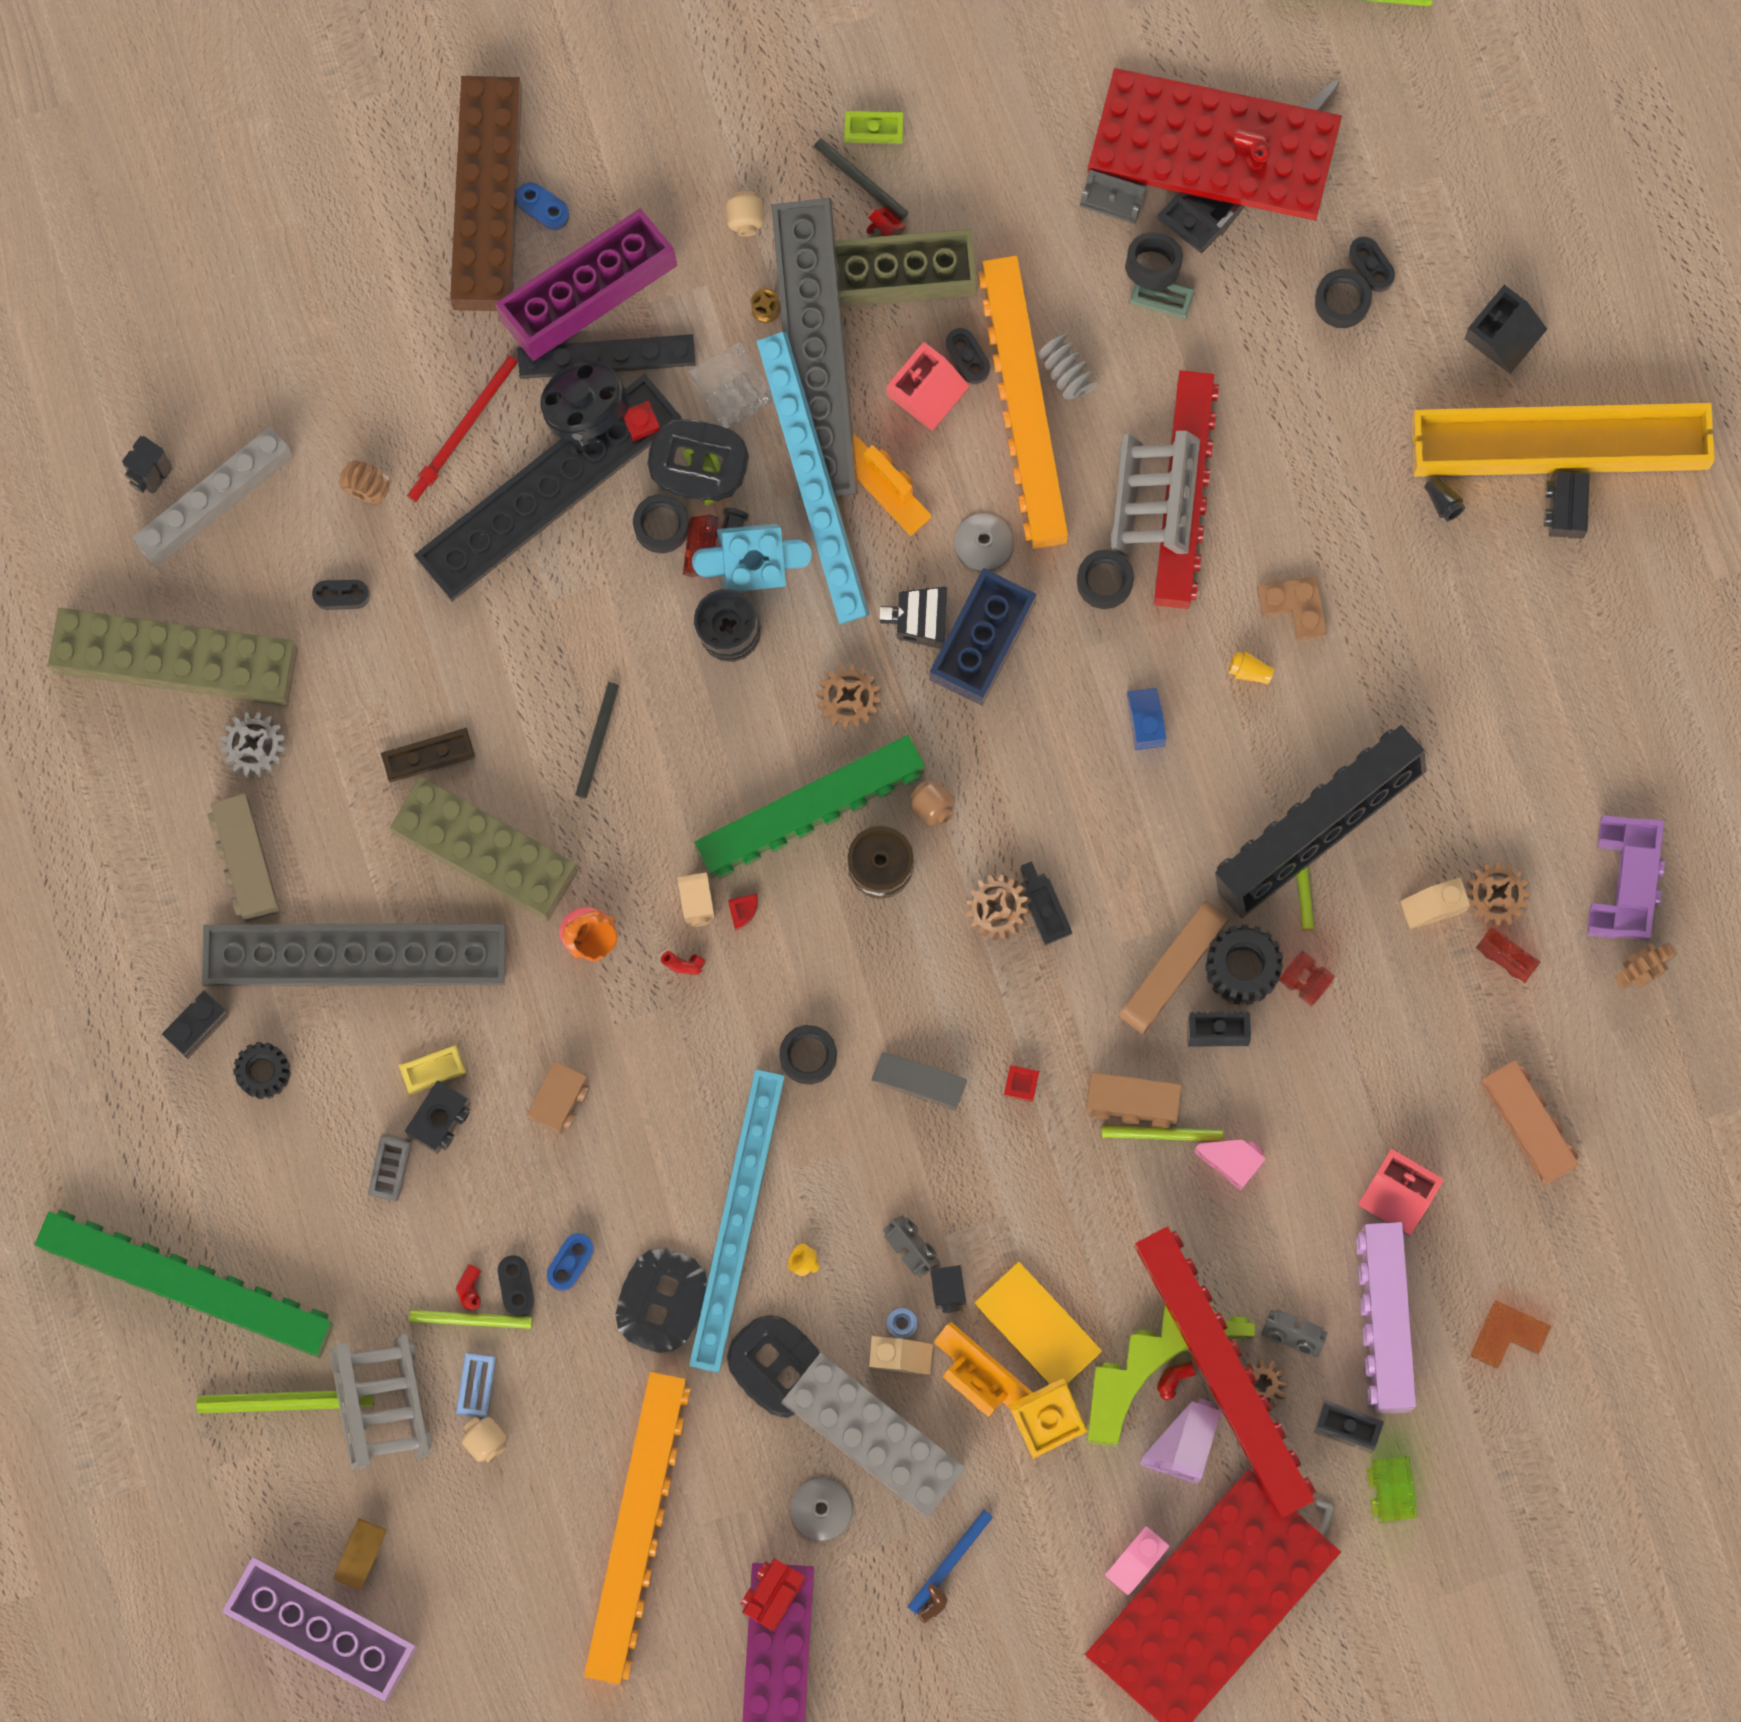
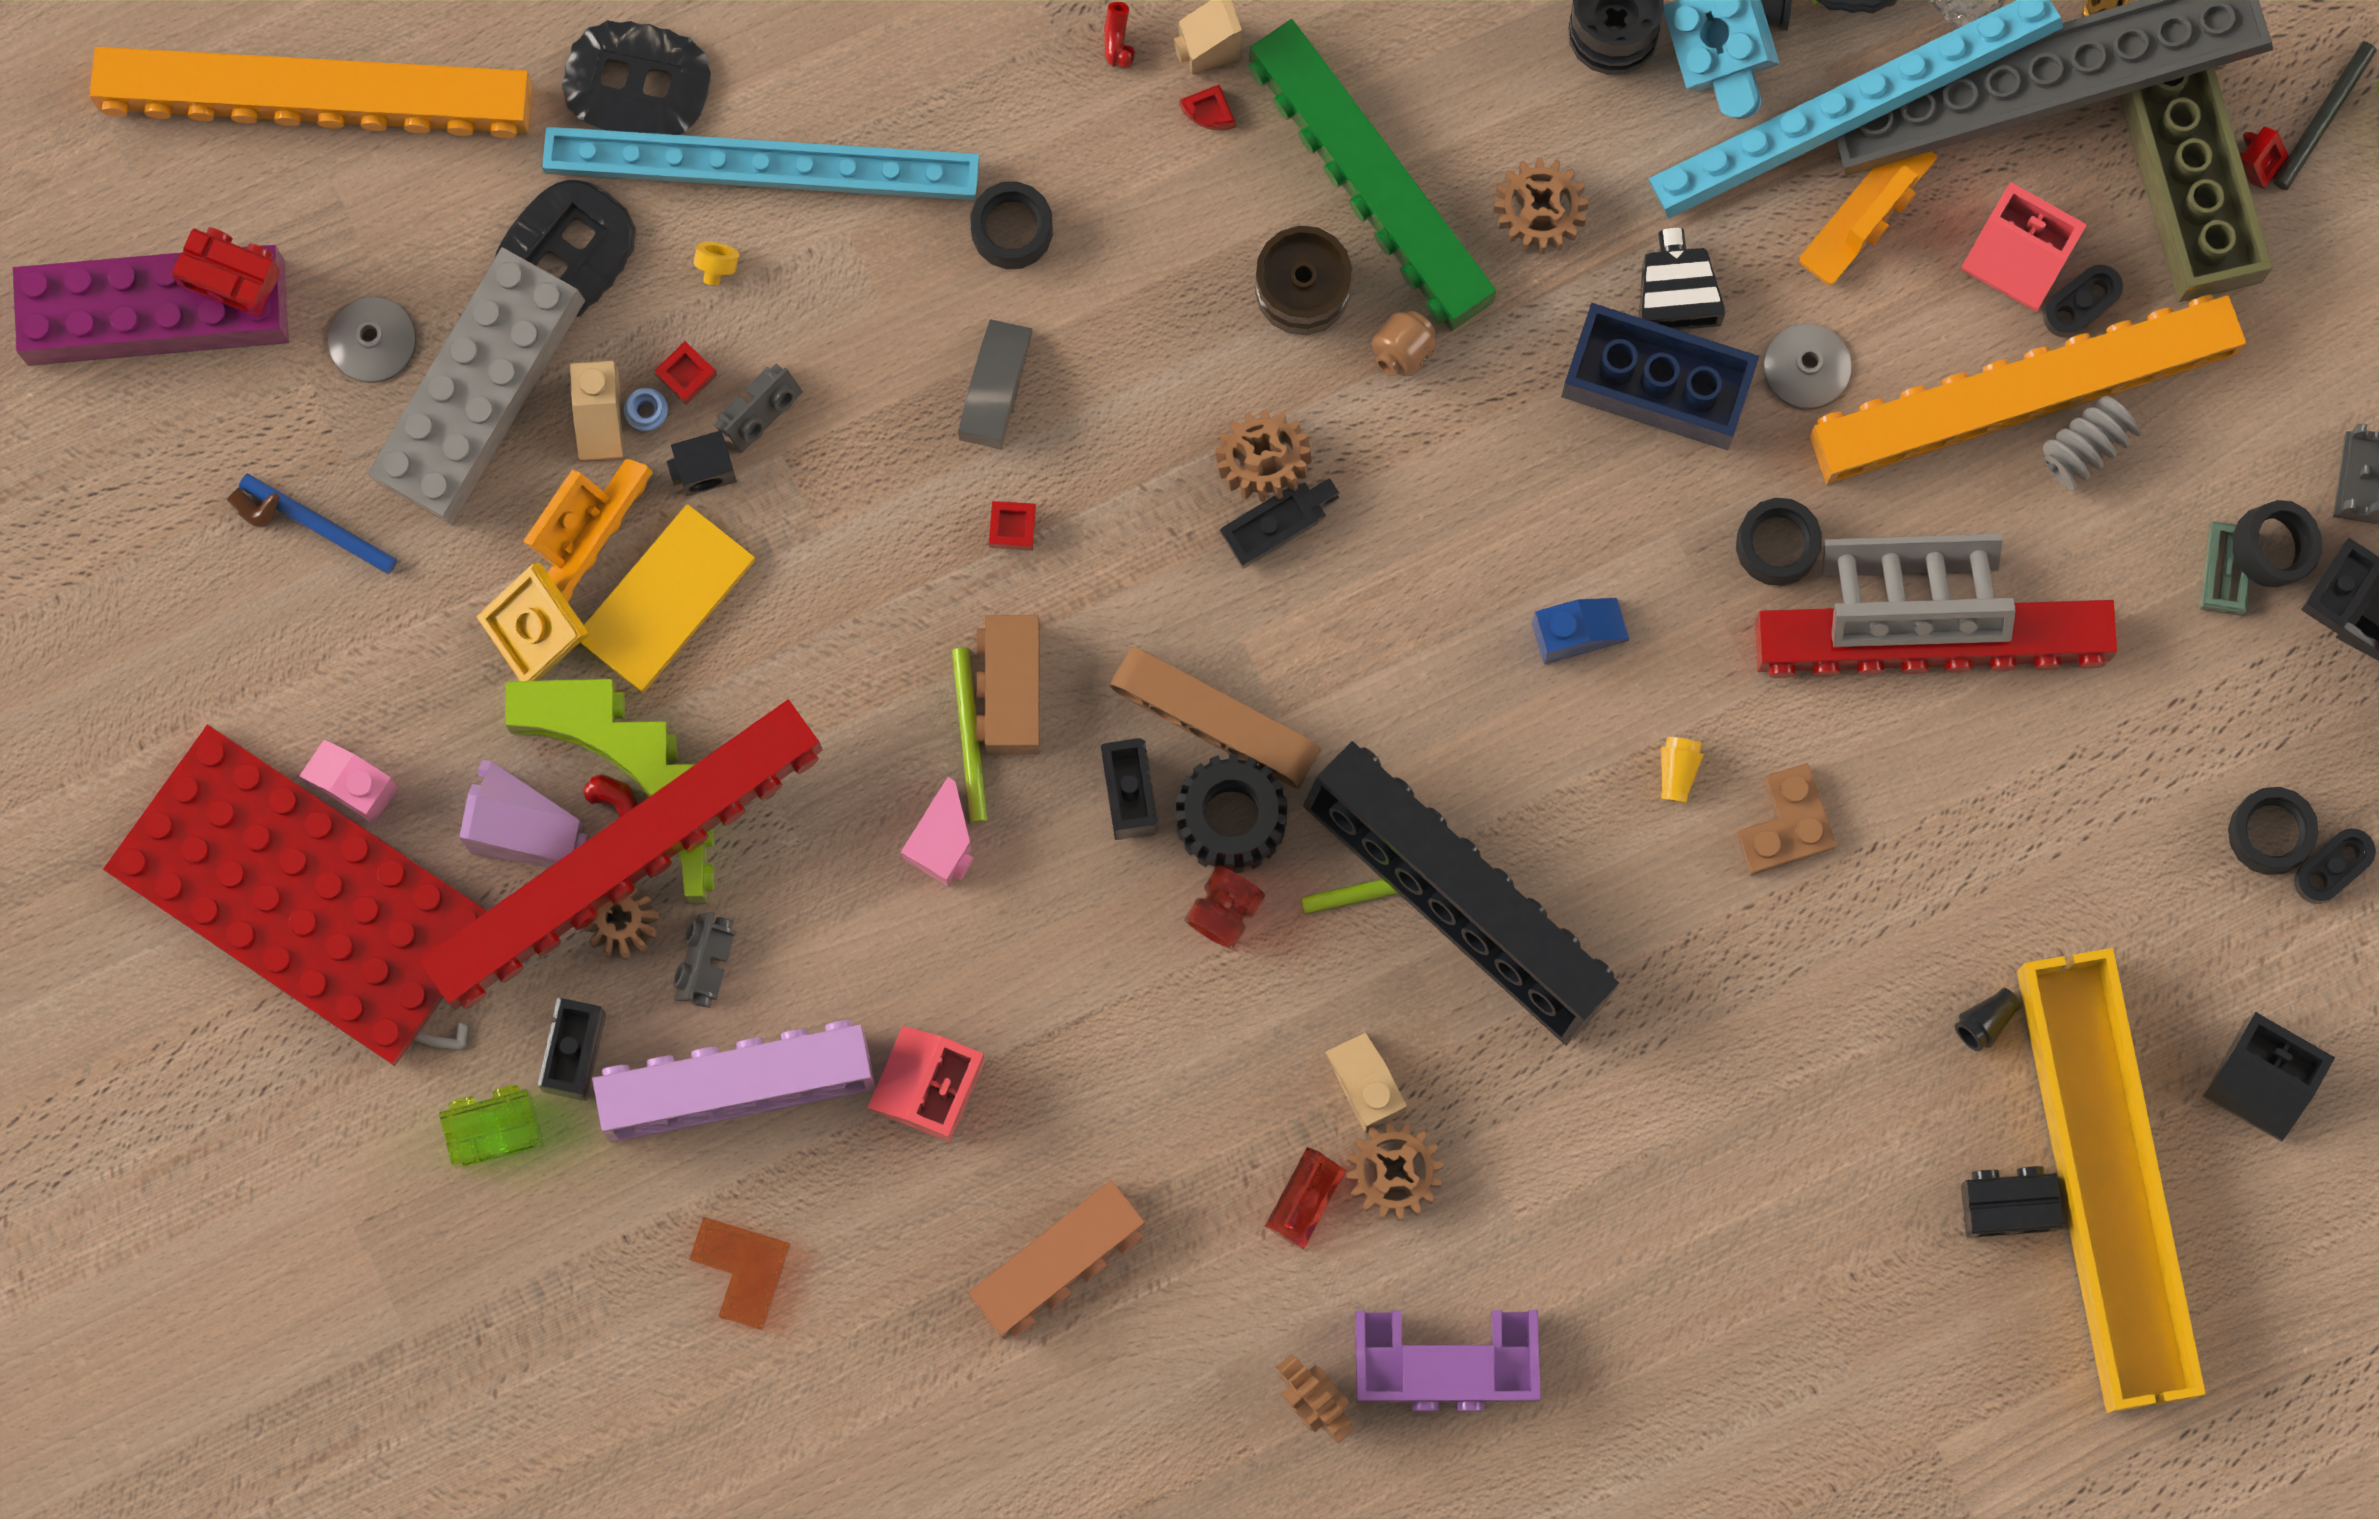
camera: 80 degrees right, 0 degrees up
(880, 1292) = (685, 373): none -> red plate

